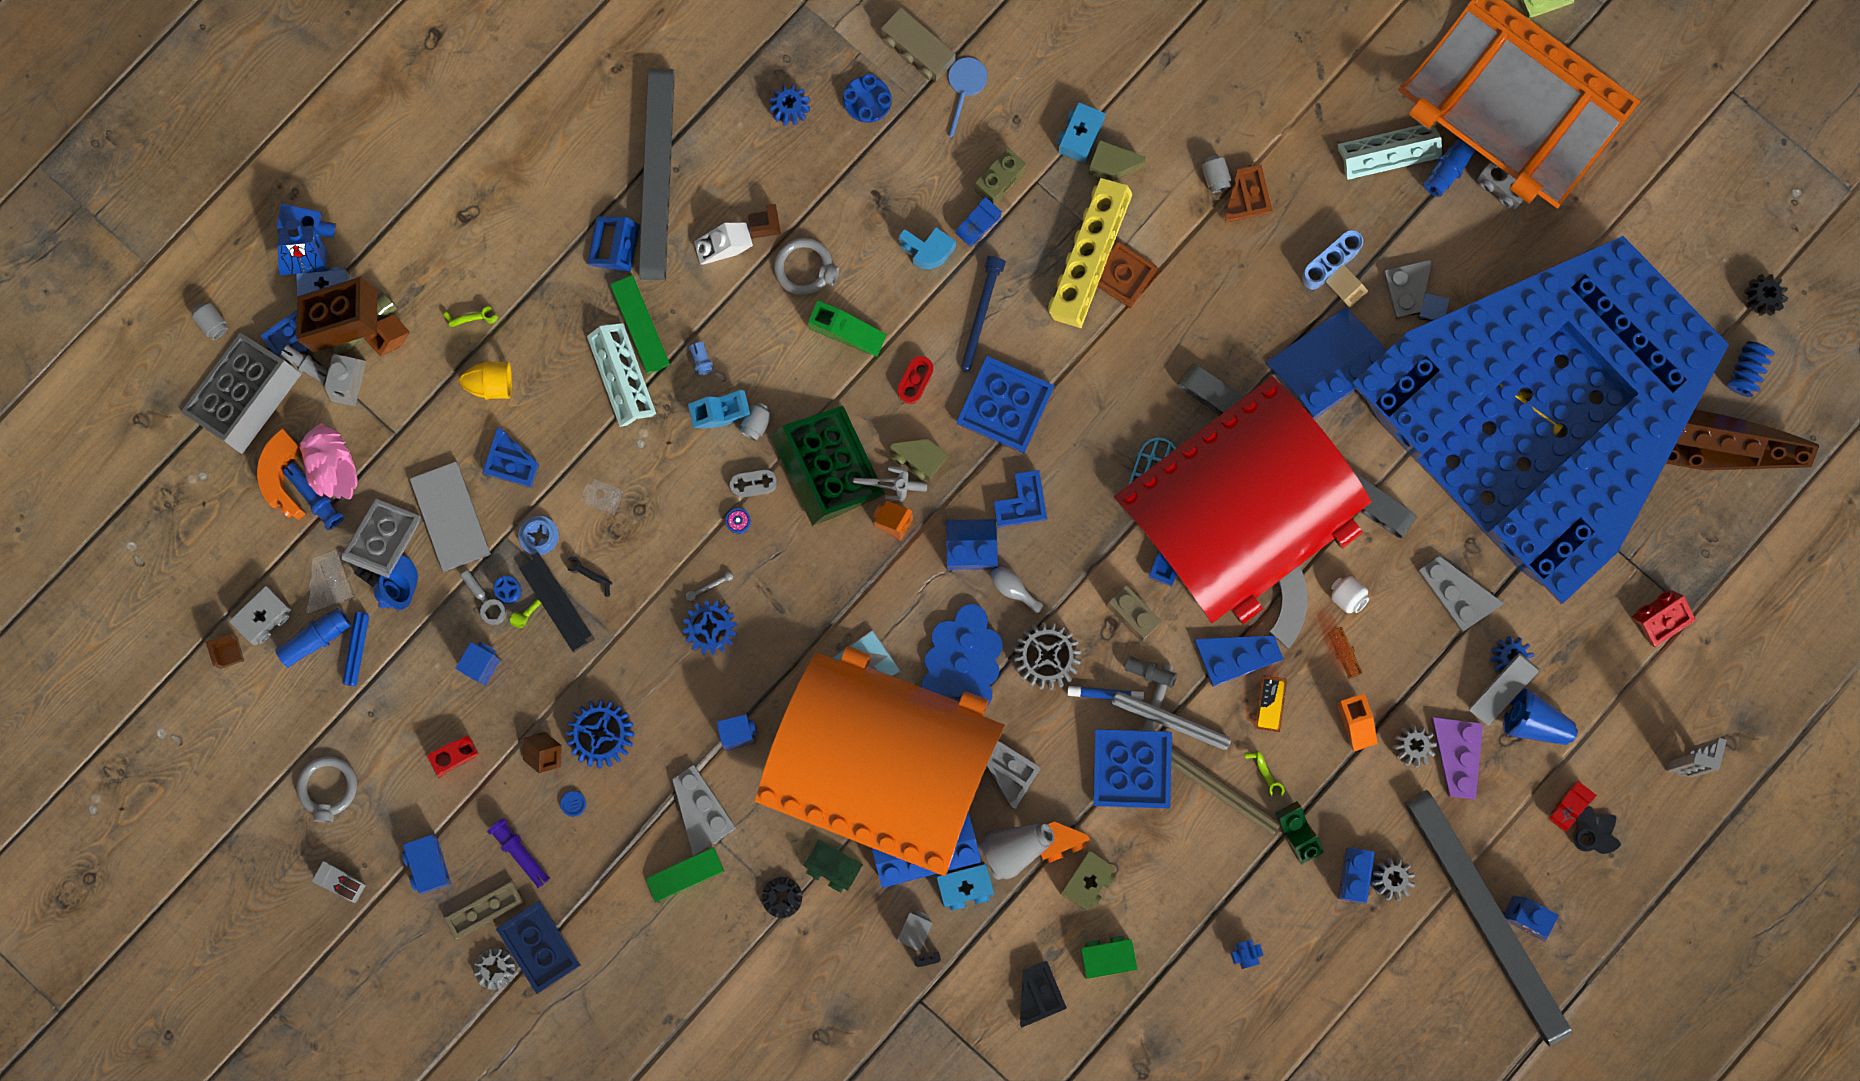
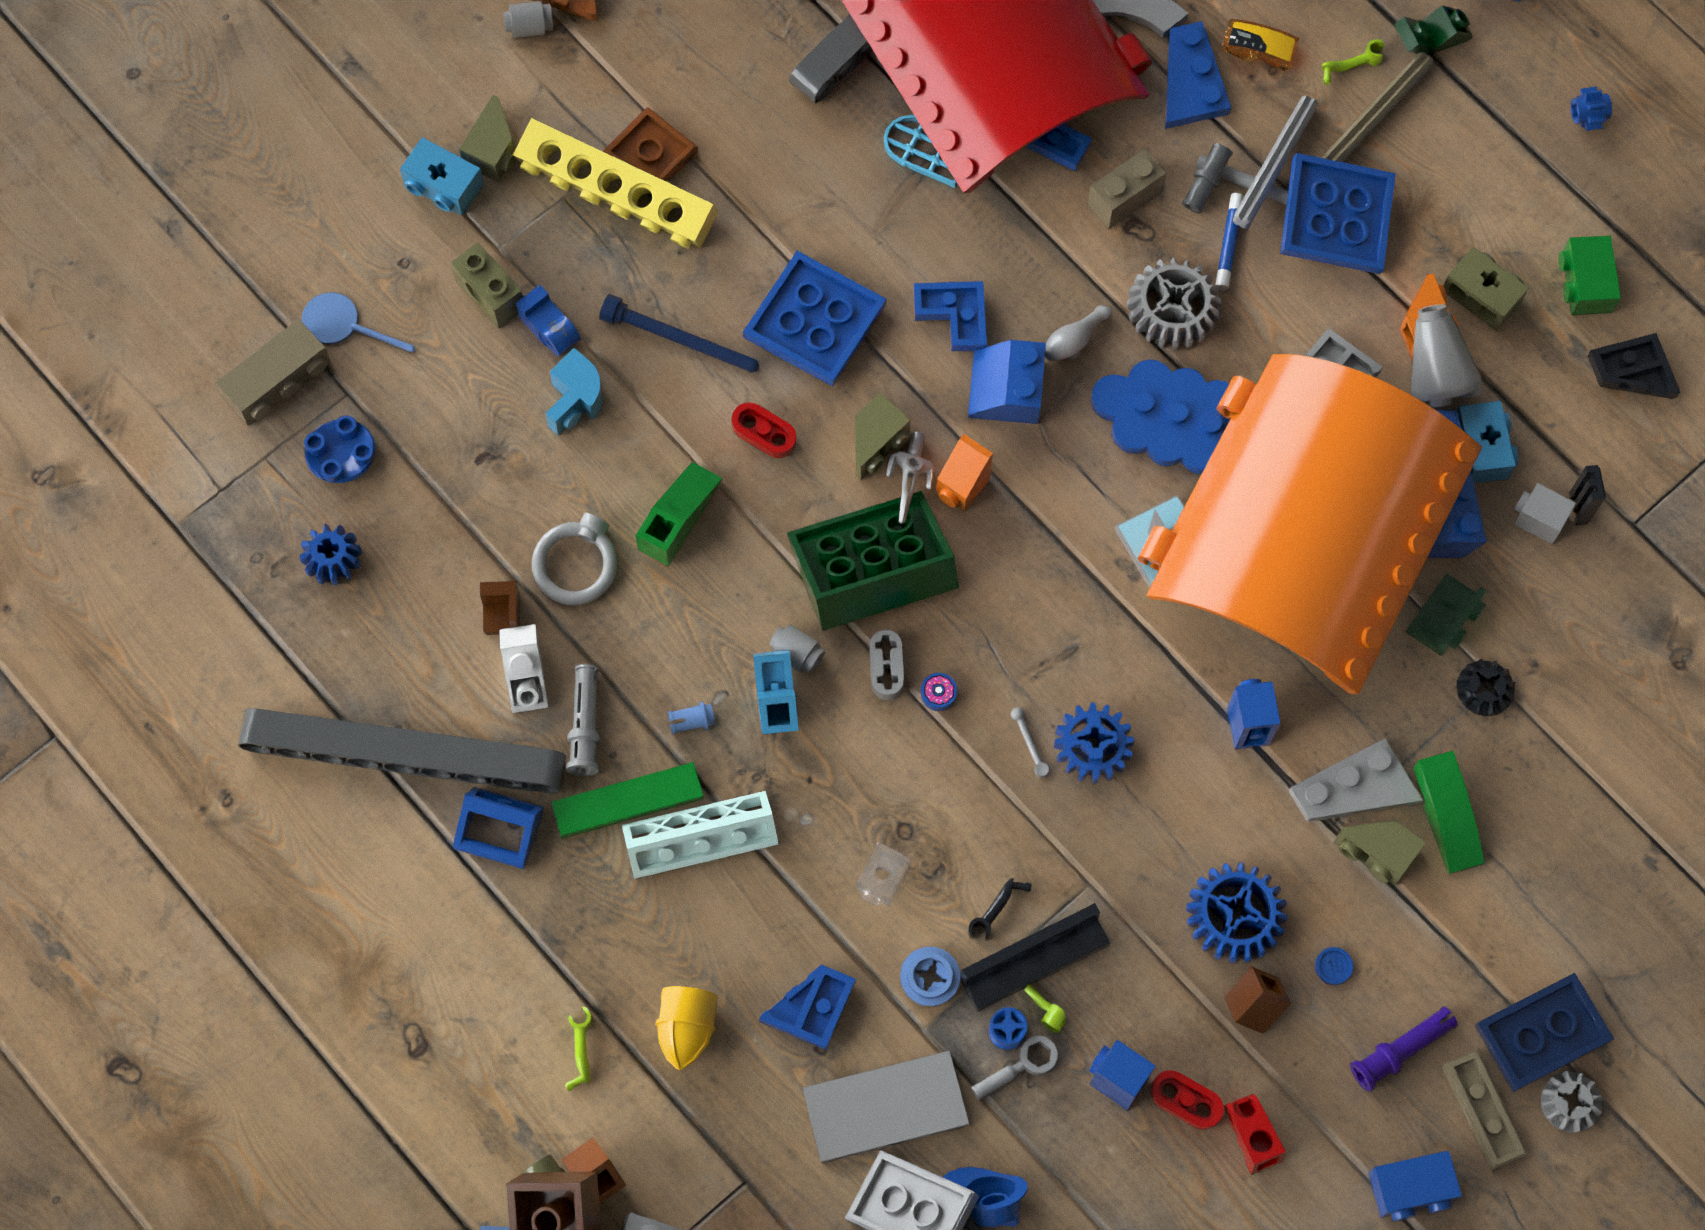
camera: 85 degrees left, 10 degrees down
(469, 710) = (1188, 1096): none -> red plate
(656, 829) = (1382, 847): none -> olive slope
(680, 289) = (583, 735): none -> light grey pin

